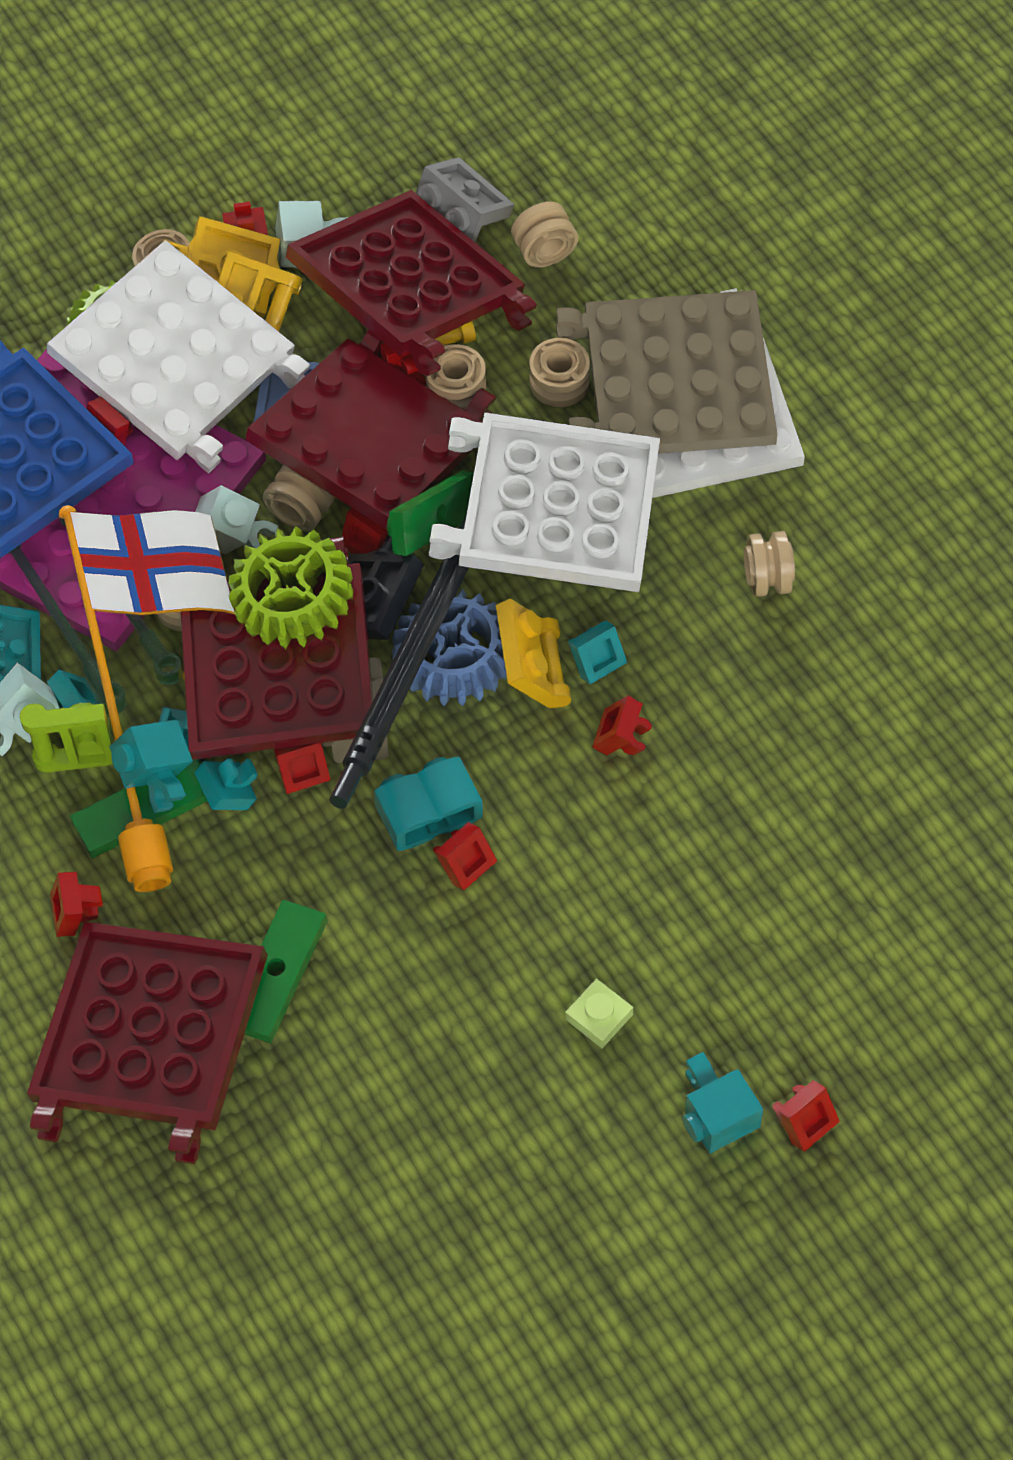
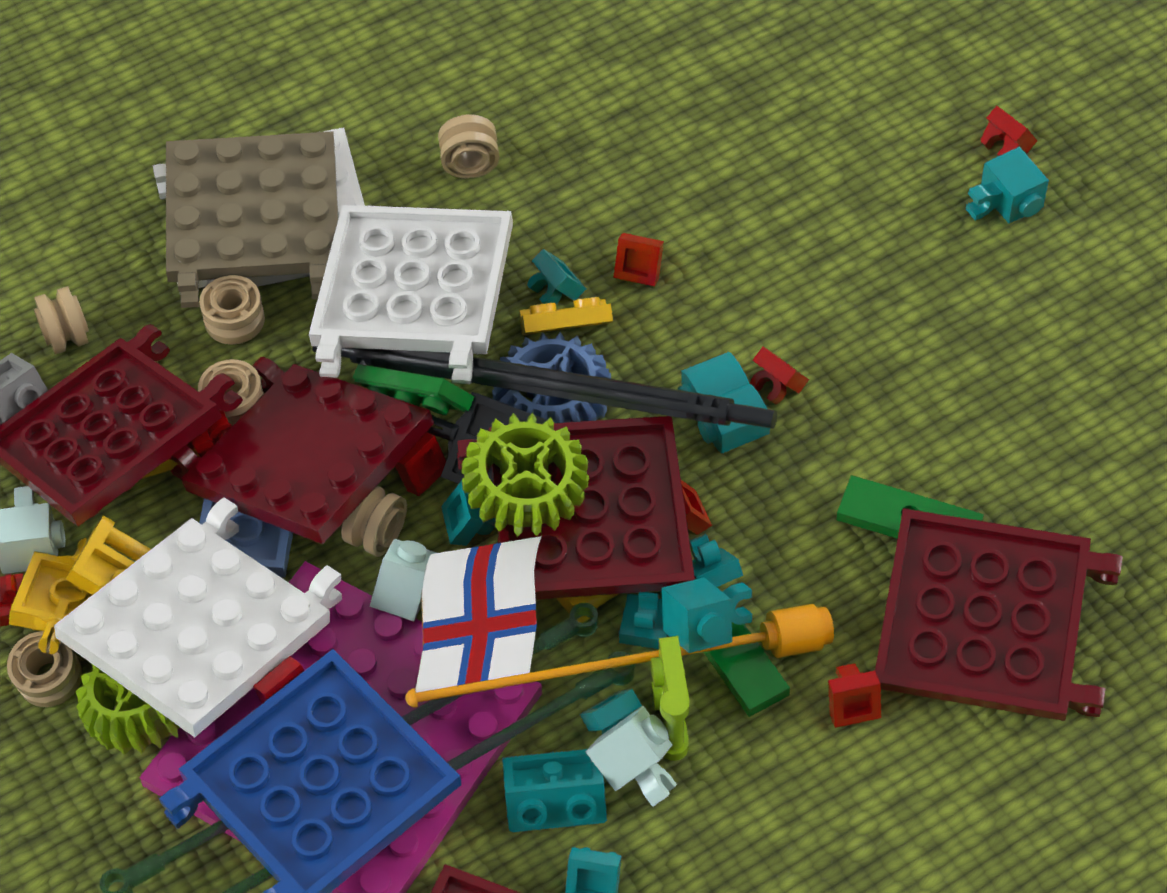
camera: 90 degrees left, 5 degrees down
(599, 1013) = (924, 278): yellowish green plate -> none

